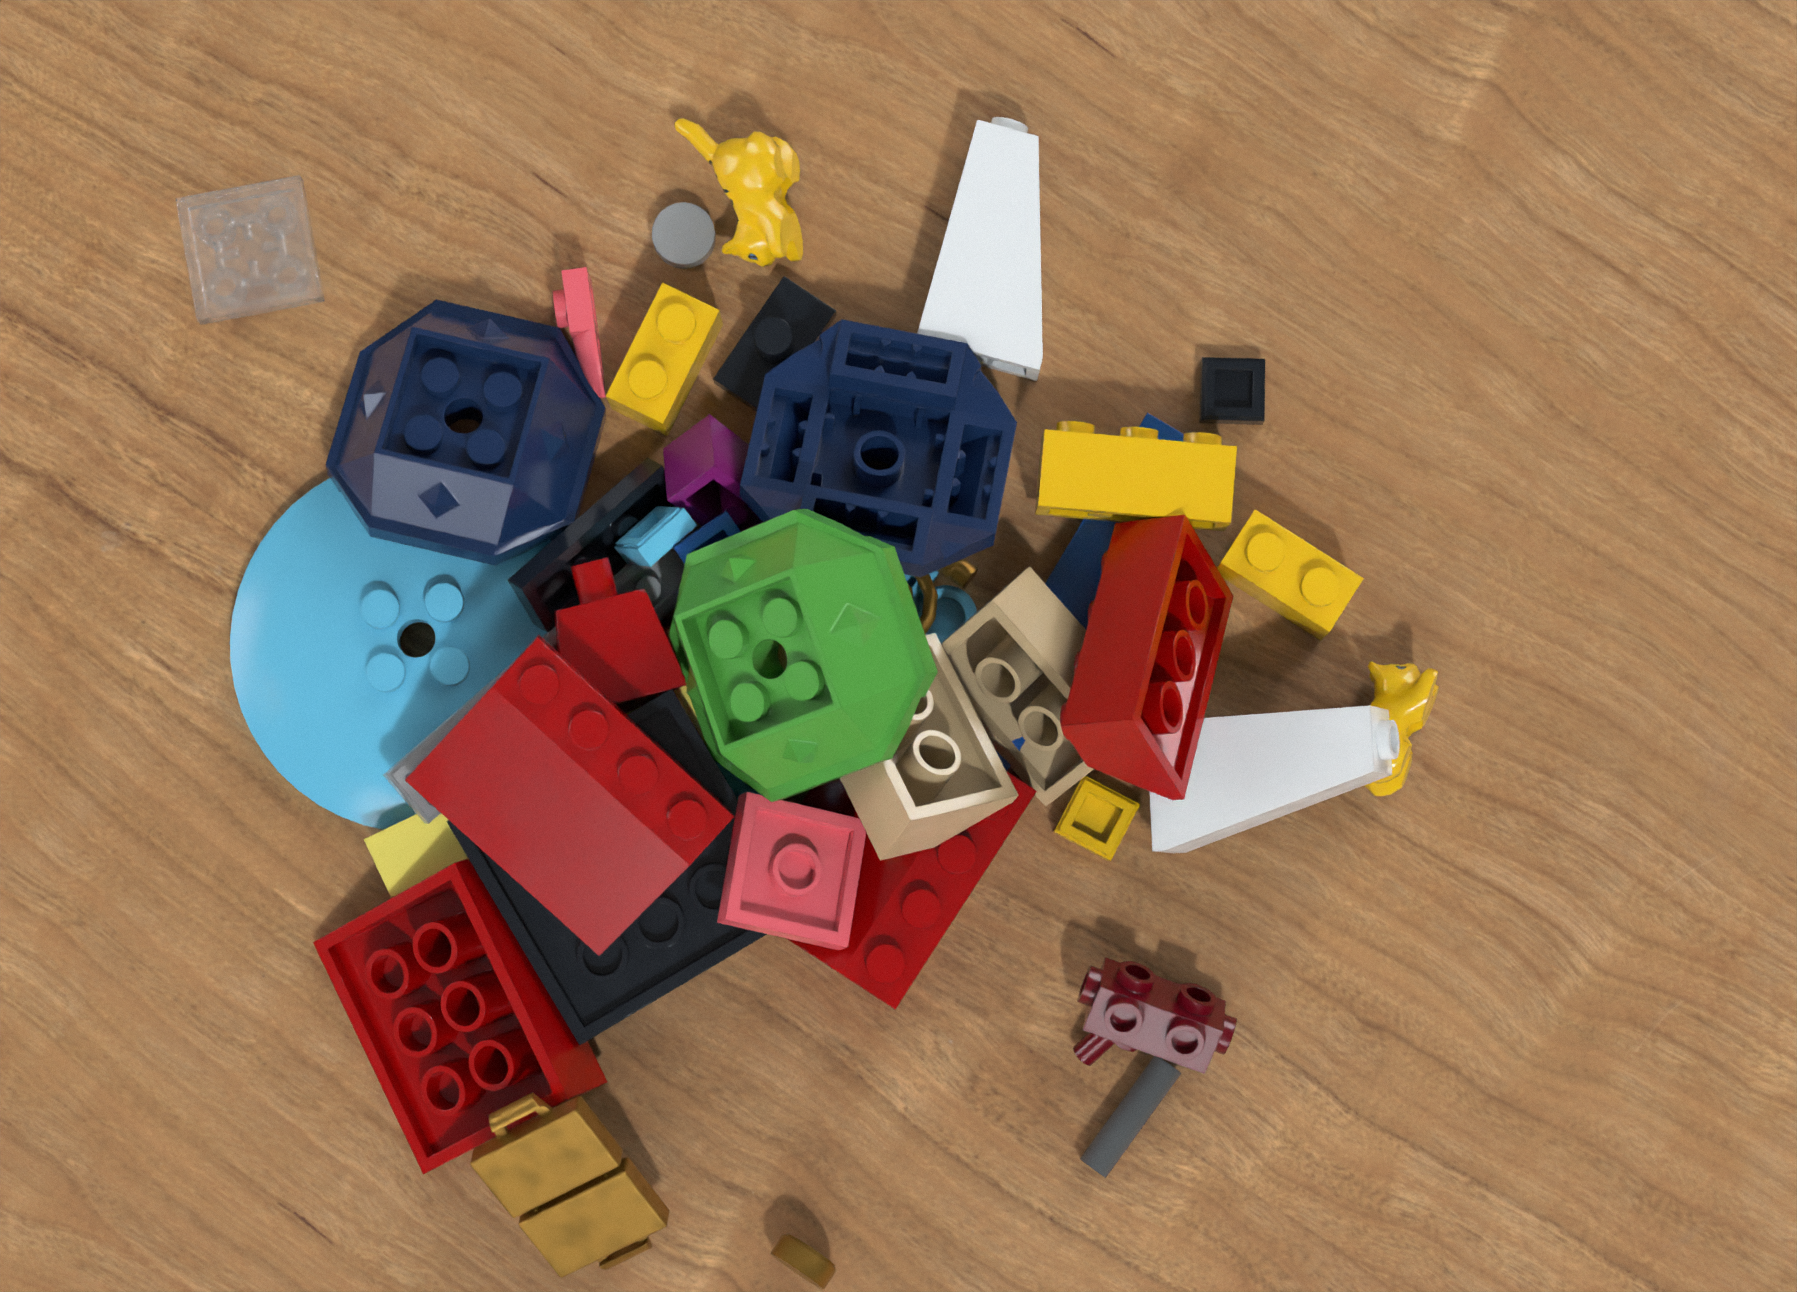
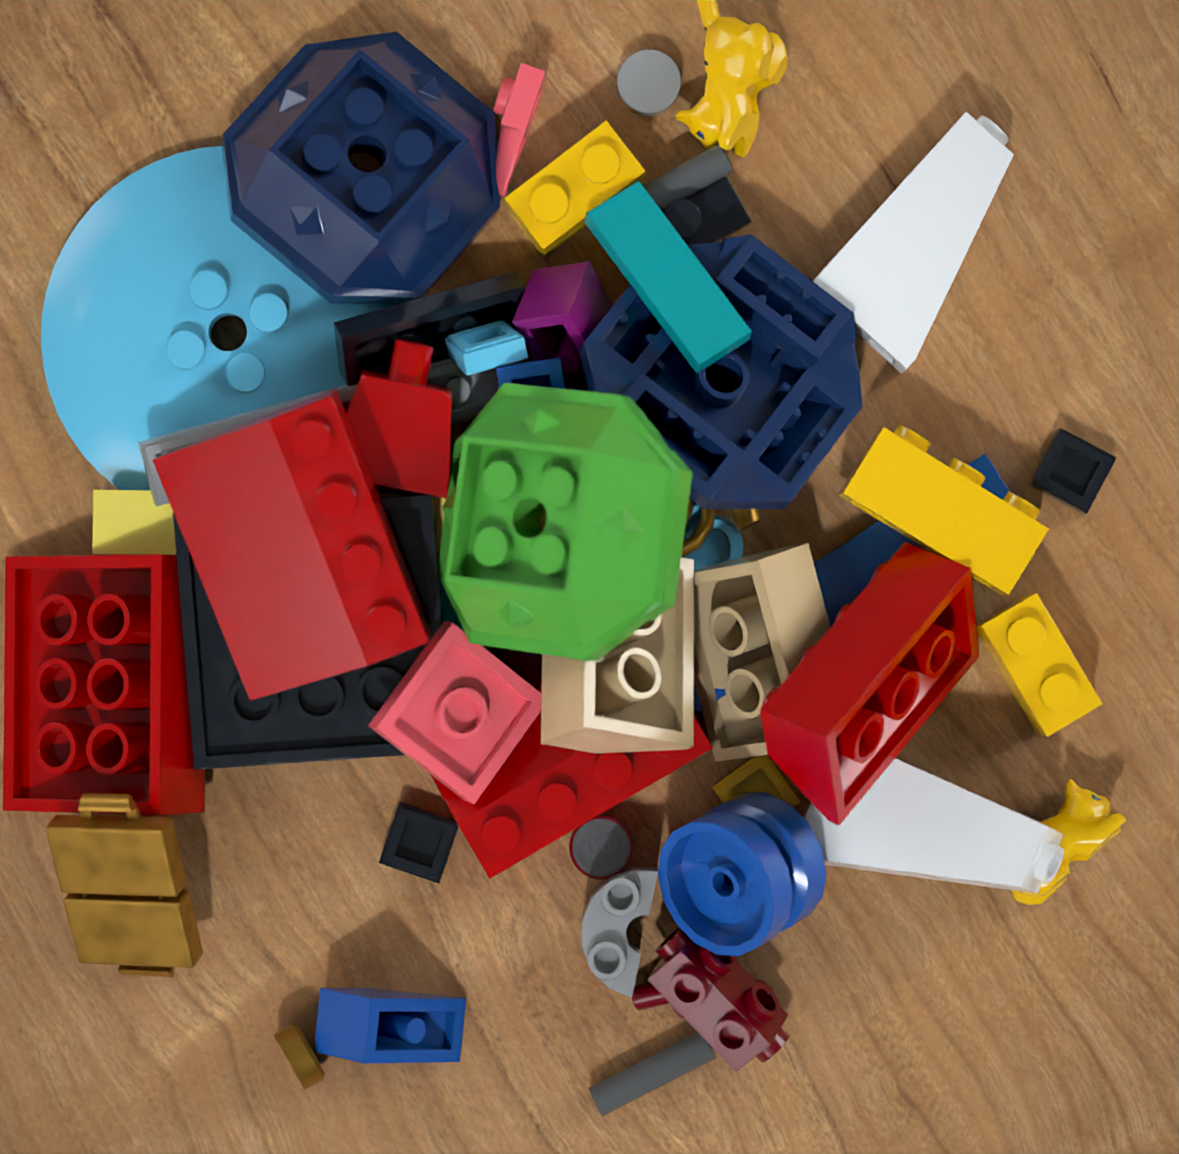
camera: 25 degrees right, 5 degrees up
(752, 309) = (689, 177): none -> dark grey piece
(786, 391) = (667, 277): none -> teal tile
(816, 1013) = (419, 842): none -> black tile
(871, 1192) = (389, 1026): none -> blue slope
(981, 935) = (601, 847): none -> tile
(1020, 997) = (605, 924): none -> light grey cylinder
(1119, 890) = (742, 873): none -> blue wheel

